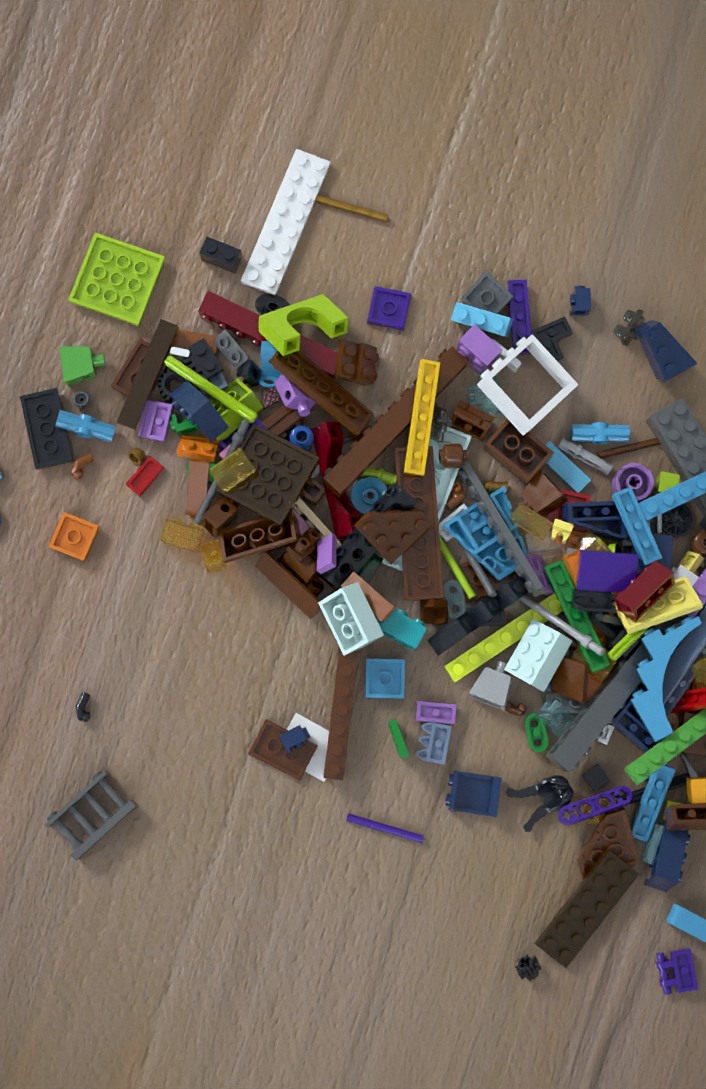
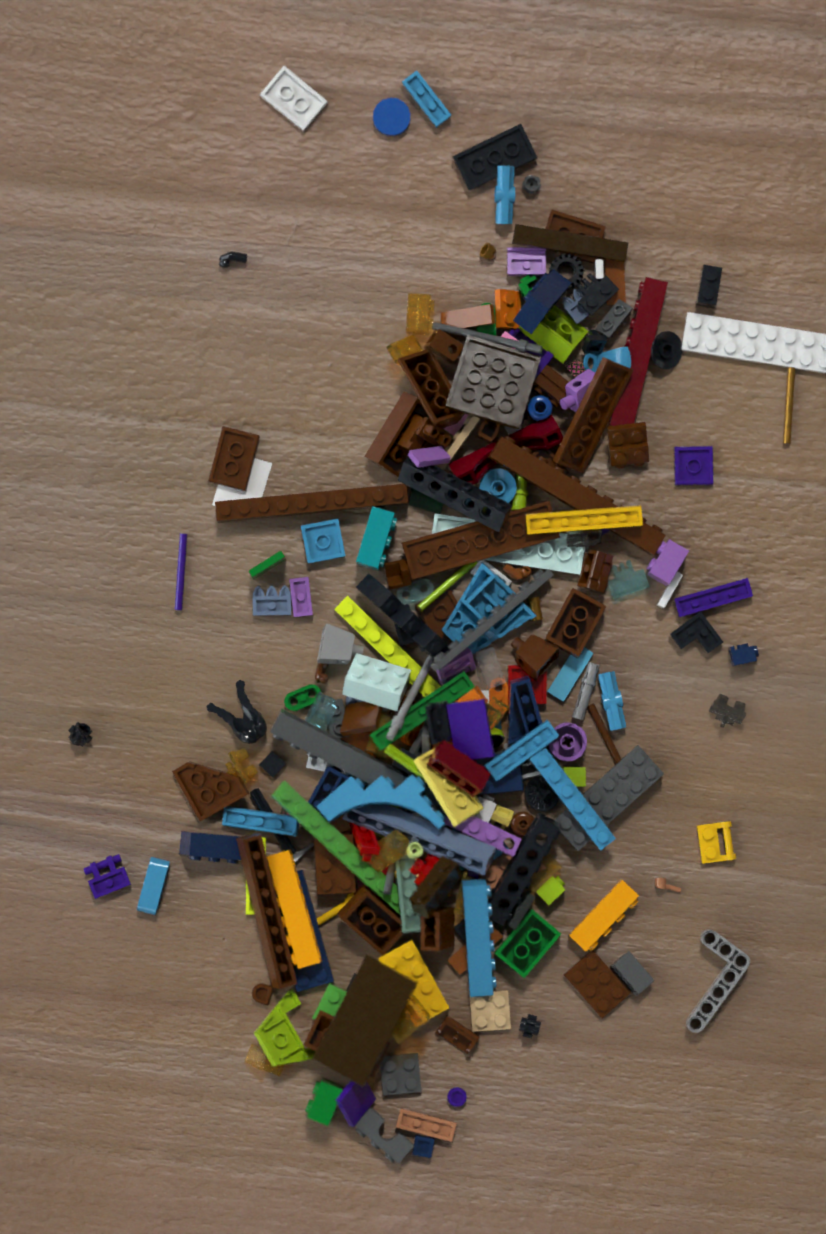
camera: 75 degrees right, 5 degrees up
(74, 536) = (394, 210): orange plate -> none
(78, 465) = (466, 197): dark orange arm -> none
(79, 364) = (566, 173): bright green torso -> none
(109, 820) = (131, 309): dark grey fence -> none
(116, 279) = (661, 189): lime plate -> none
(145, 476) = (469, 264): red tile -> none
(211, 389) = (566, 307): lime axle -> none
(232, 470) = (489, 346): clear yellow panel -> none
(294, 738) = (246, 466): dark blue brick -> none
(319, 310) = (671, 392): lime arch -> none
(350, 618) = (369, 492): light aqua brick -> none
(379, 605) = (394, 505): tile -> none
(392, 530) = (464, 514): reddish brown plate -> none
(452, 456) = (554, 558): reddish brown head -> none
(473, 793) = (232, 649): dark blue panel -> none
(480, 573) = (442, 610): dark grey bar -> none
(482, 319) = (699, 559): medium azure brick -> none
(488, 294) = (725, 560): dark grey plate -> none
(505, 404) = (613, 598): white window -> none
(531, 521) = (506, 649): clear yellow panel -> none
(561, 528) = (504, 679): light yellow tile -> none
(586, 908) = (147, 778): dark brown plate -> none
(593, 802) = (248, 763): dark purple beam -> none
(652, 844) = (221, 830): clear light blue tile -> none
(663, 351) = (706, 747): dark blue wedge -> none

